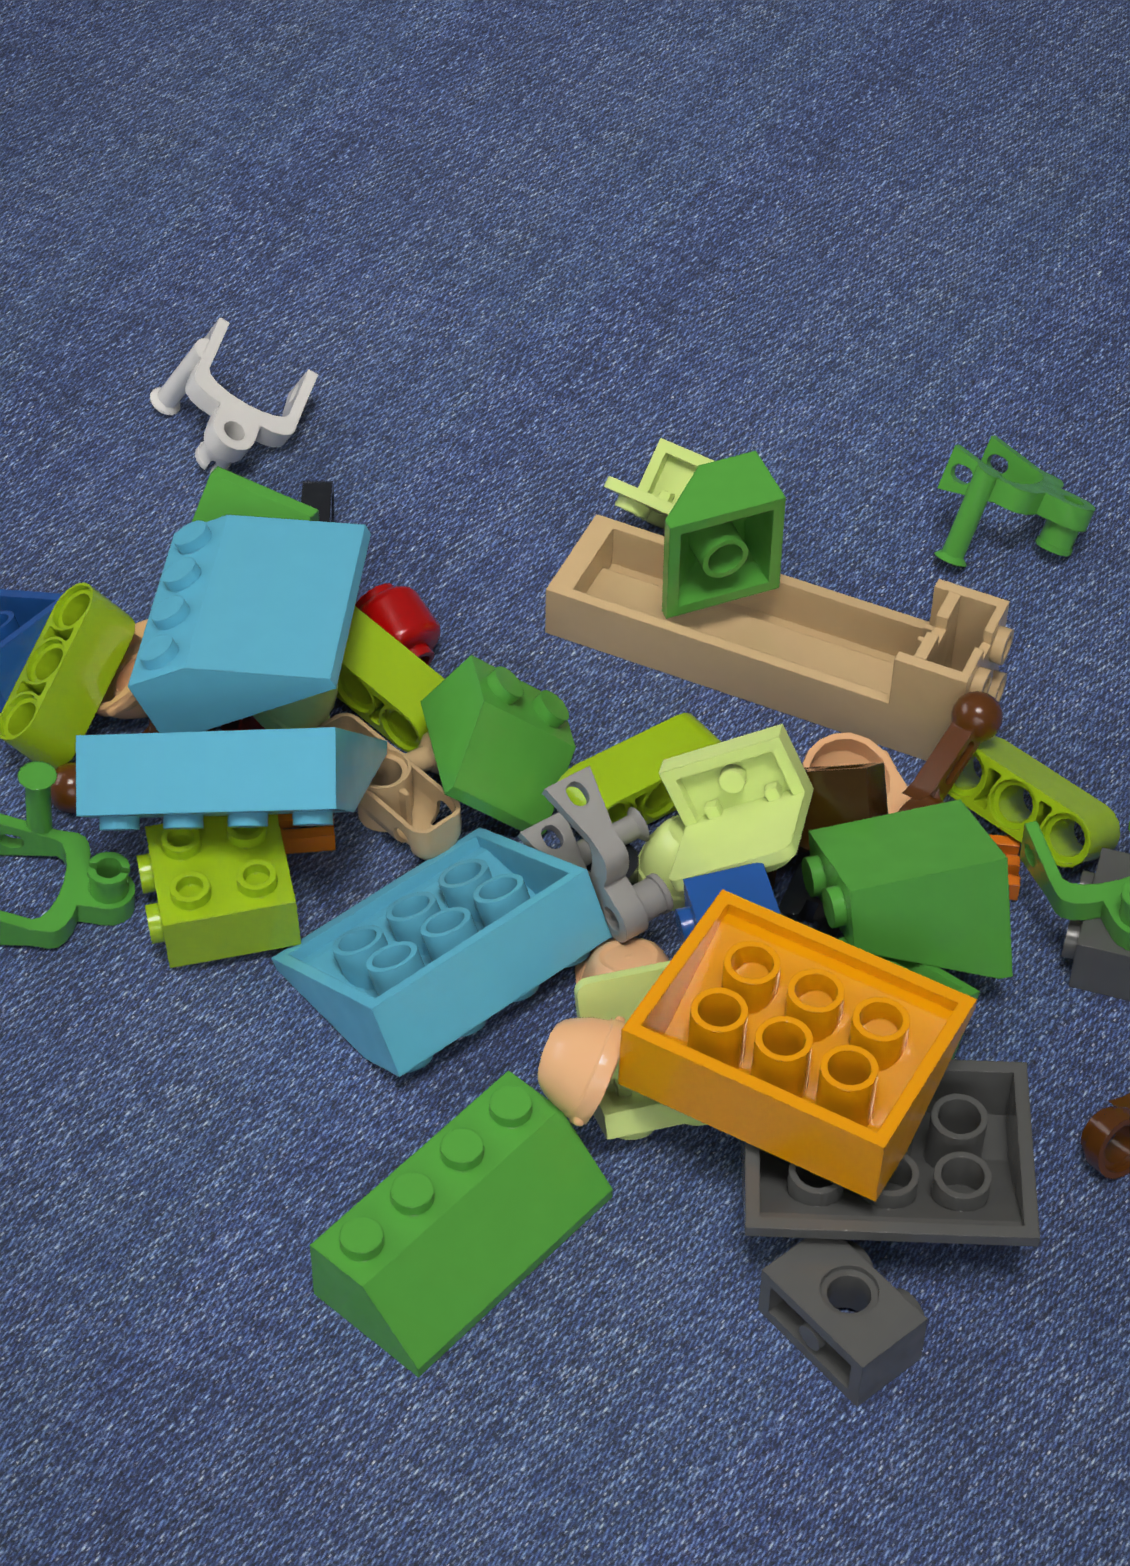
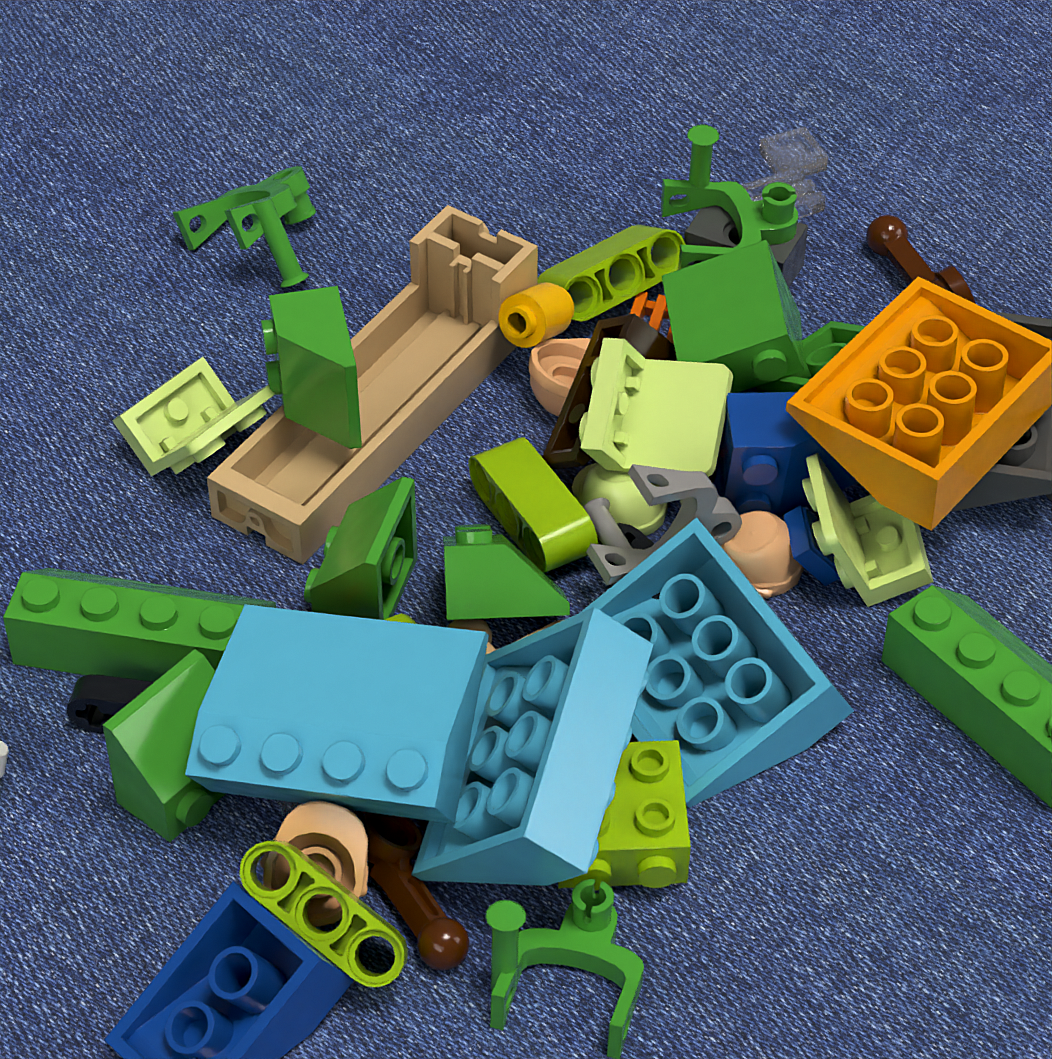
camera: 80 degrees left, 0 degrees up
(428, 511) = (115, 624): none -> bright green slope
(535, 649) = (368, 556): none -> bright green slope
(580, 1064) = (908, 548): light nougat hat -> none
(902, 724) = (536, 314): none -> yellow brick
(974, 720) = (561, 261): reddish brown piece -> none

